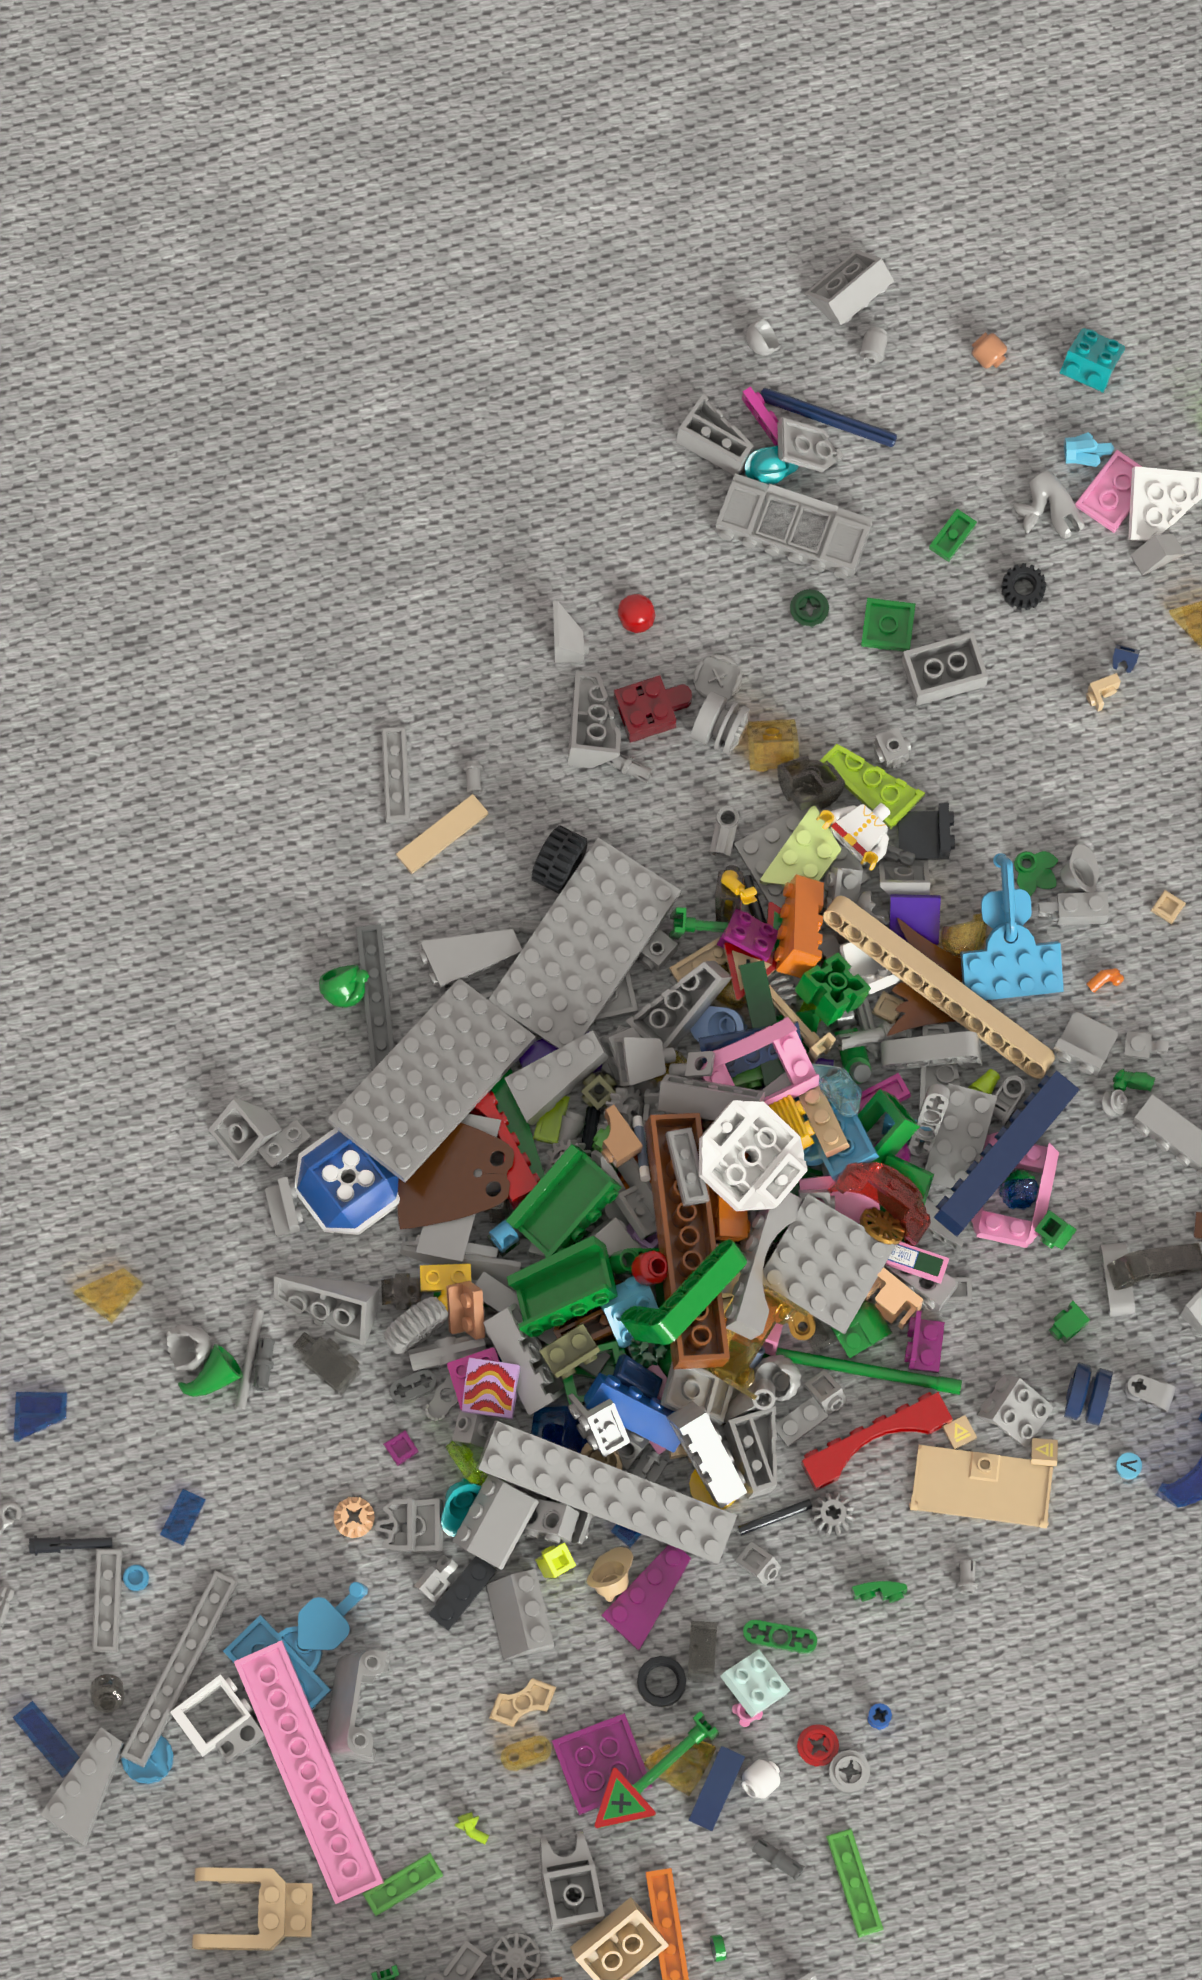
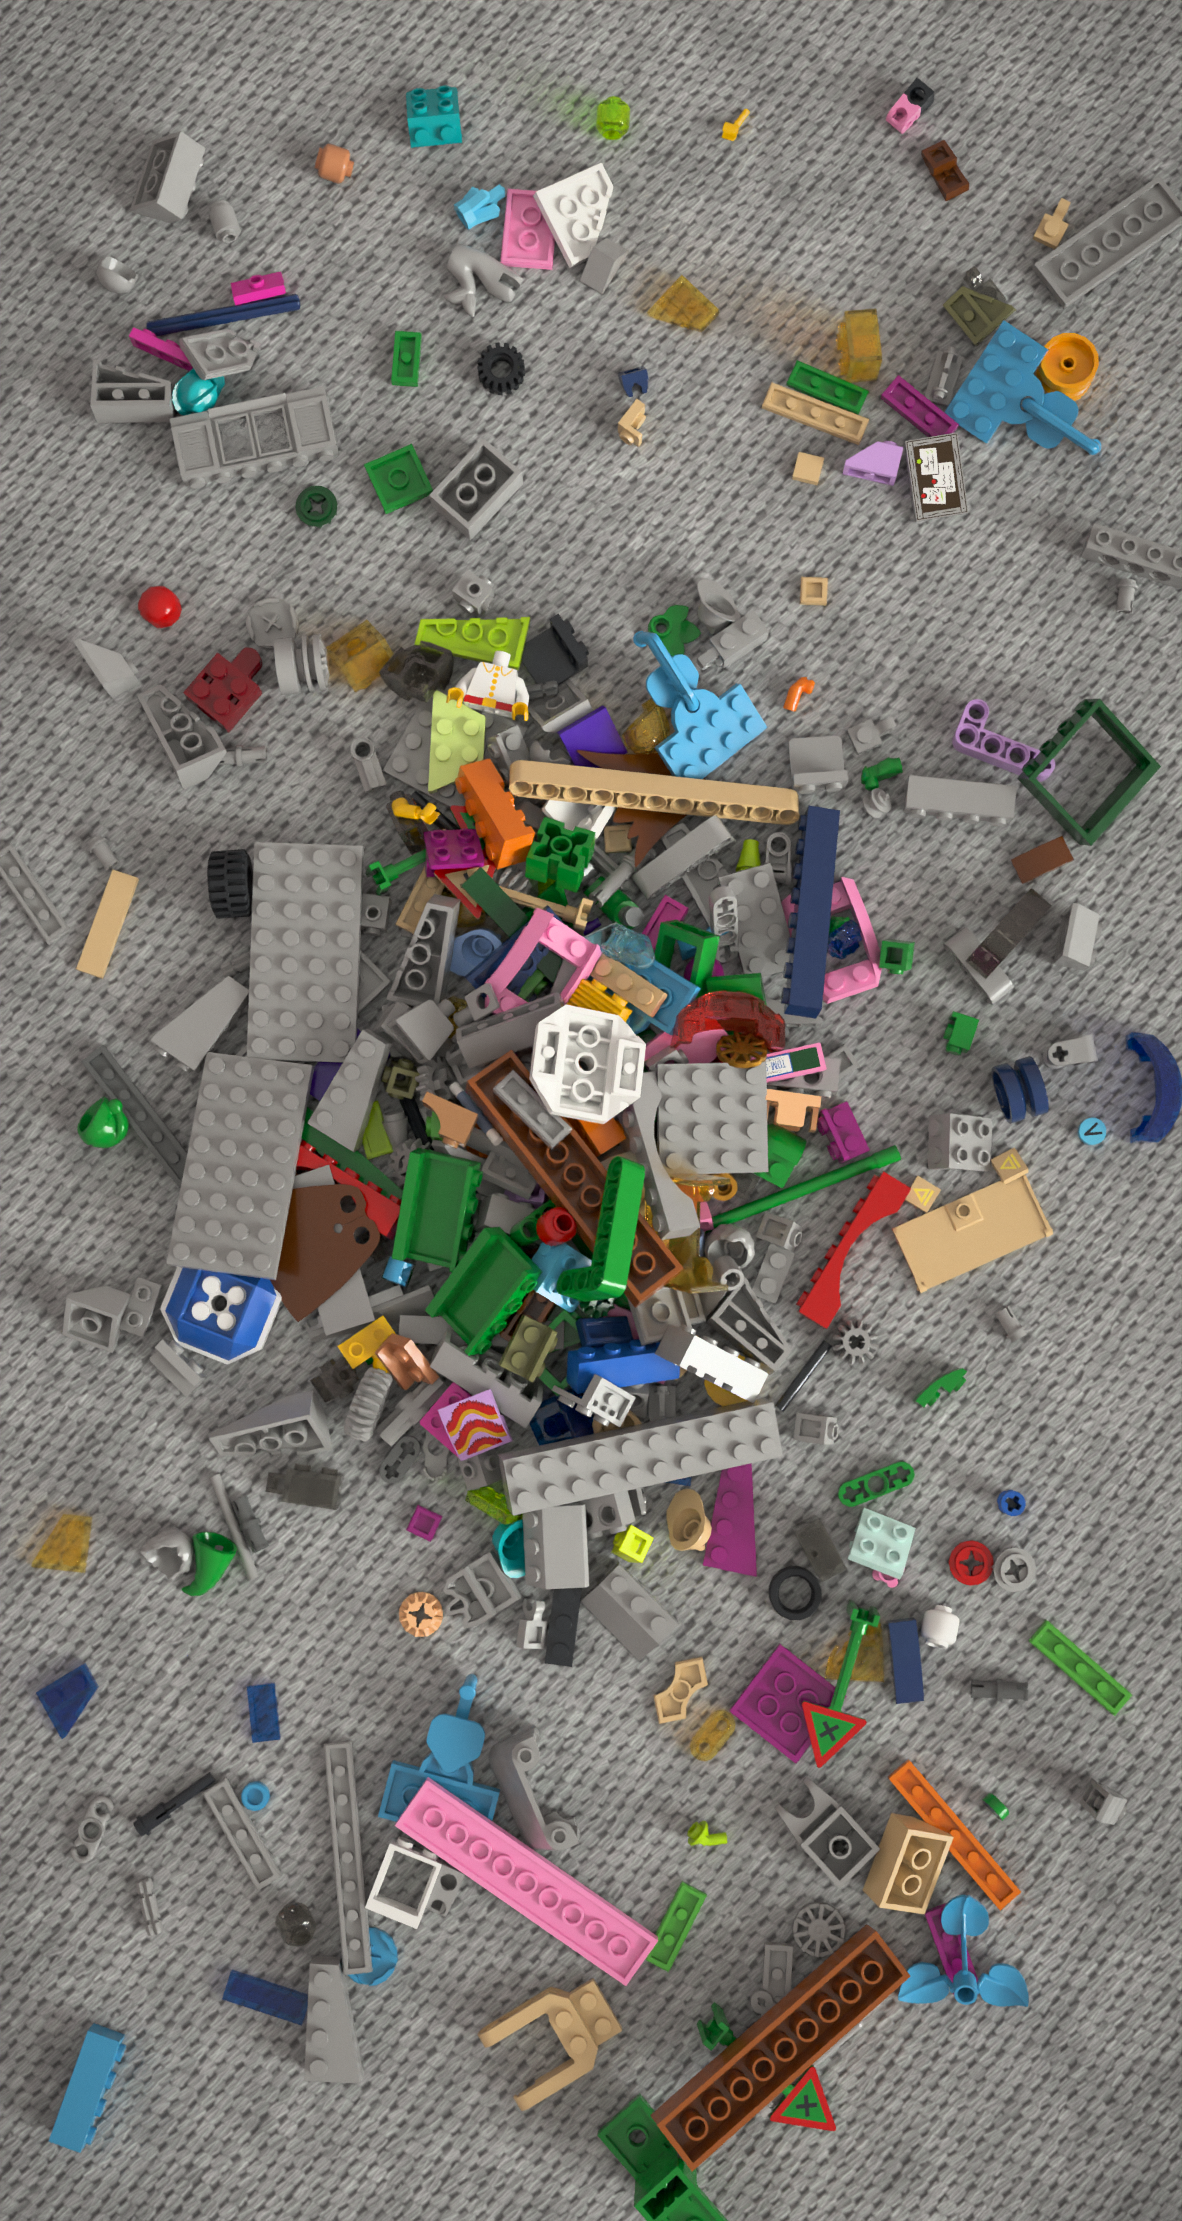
camera: 25 degrees left, 10 degrees up
(868, 412) = (258, 288): none -> dark pink plate

